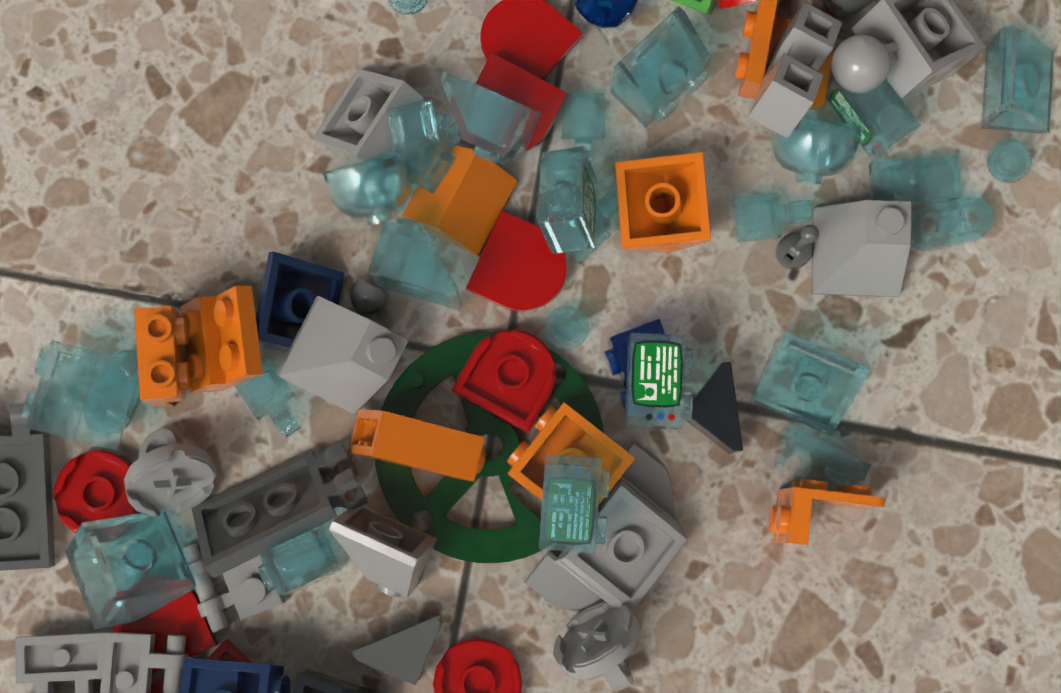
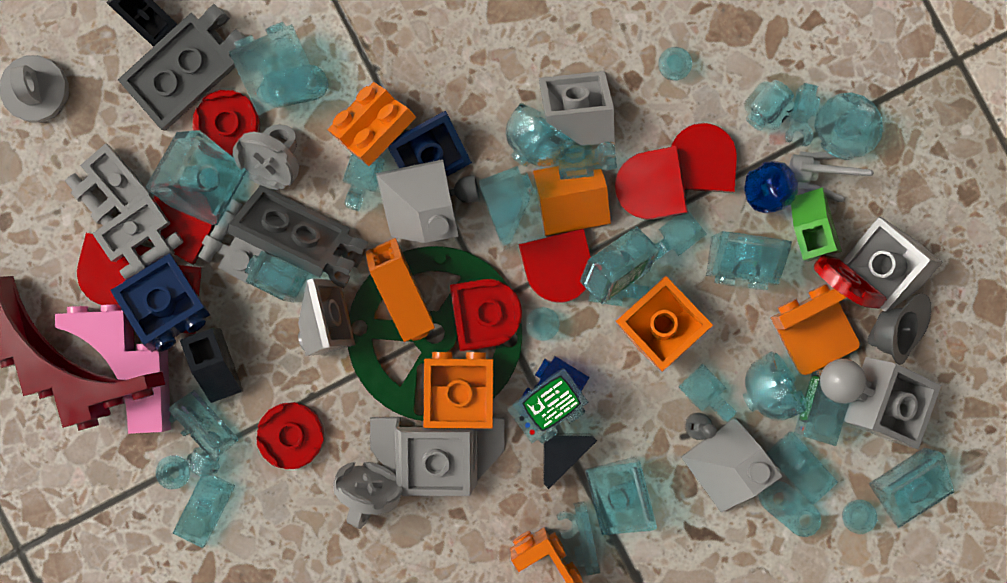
camera: 50 degrees right, 5 degrees up
(159, 356) = (332, 95): orange plate -> none
(402, 652) = (273, 377): dark grey slope -> none
(413, 126) = (590, 136): clear light blue tile -> none
(490, 120) = (631, 178): clear light blue slope -> none
(572, 504) = (433, 412): clear light blue brick -> none
(793, 70) = (802, 343): light grey arch -> none

